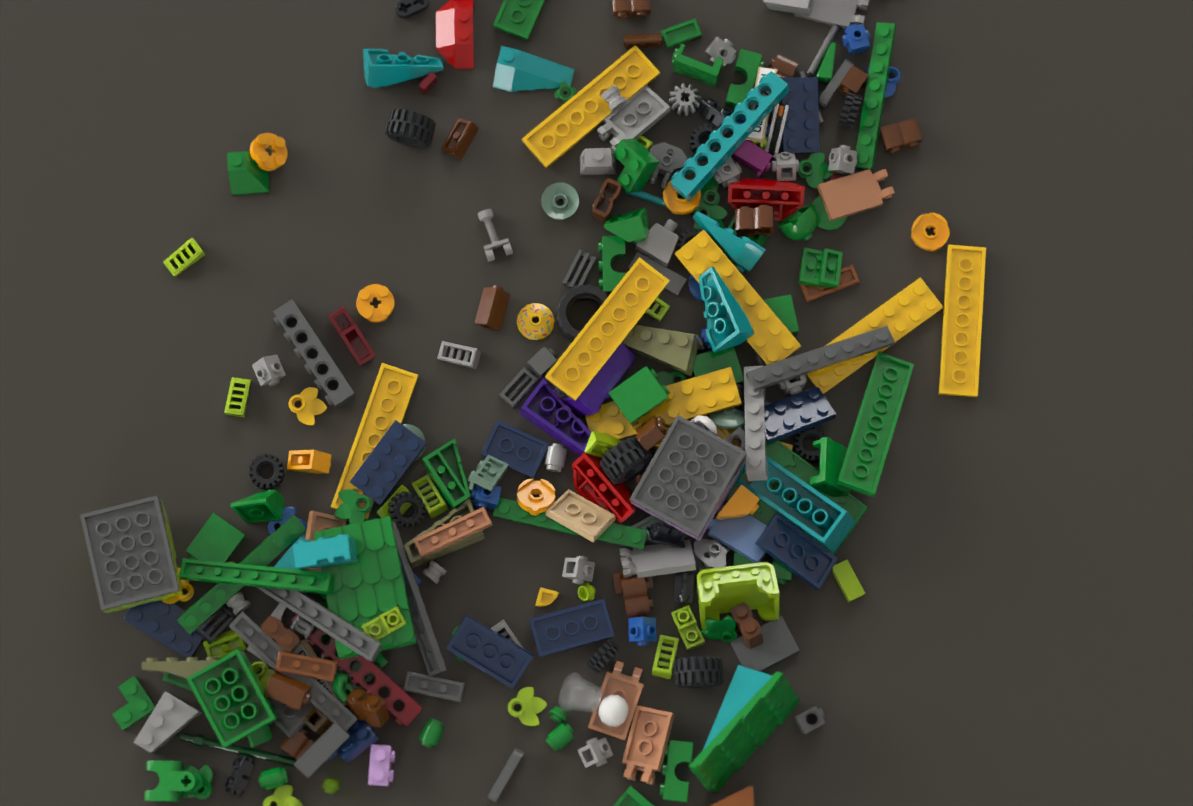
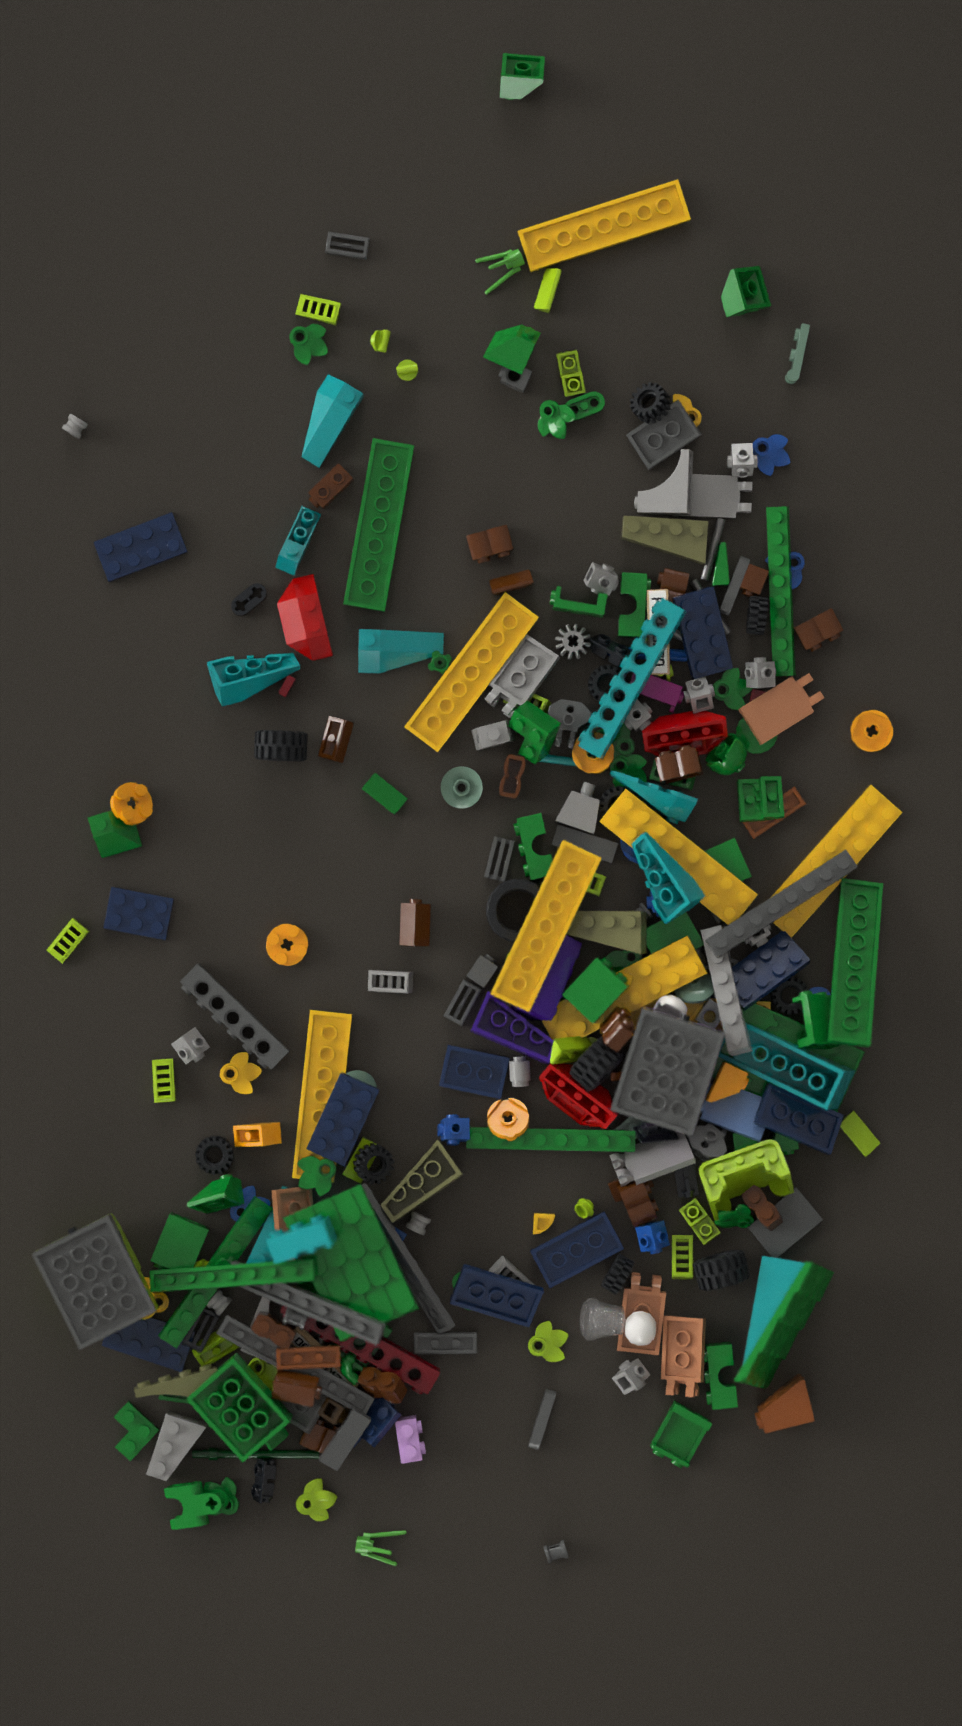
camera: 10 degrees left, 10 degrees up
(251, 248) = (138, 913): none -> dark blue plate
(273, 778) = (300, 1476): green brick -> none
(330, 785) = (362, 1470): clear neon green plate -> none
(351, 335) = (269, 986): dark red slope -> none
(384, 624) = (381, 1299): lime slope -> none
(431, 733) = (454, 1393): green brick -> none
(434, 507) = (407, 1154): lime slope -> none
(447, 473) = (408, 1115): green wedge -> none
(452, 532) = (429, 1181): nougat tile -> none
(486, 216) = (385, 822): light grey bar -> none
(488, 473) = (453, 1107): sand green bracket -> none
(491, 193) = (384, 793): none -> green slope
(538, 330) = (456, 933): yellow dish -> none
(558, 715) = (583, 1344): green plate -> none
(560, 737) = (590, 1367): green brick -> none
(578, 569) = (571, 1187): light grey brick -> none
(580, 515) = (560, 1130): tan tile -> none
(614, 99) = (494, 660): light grey wheel -> none
(629, 225) = (543, 800): green slope -> none
(681, 33) = (552, 565): green tile -> none
(776, 129) = (681, 656): sticker -> none
(786, 28) = (672, 536): none -> olive wedge
(802, 723) = (839, 1291): dark grey brick -> none
(856, 39) = (747, 539): blue brick -> none
(962, 321) = (926, 822): yellow plate -> none

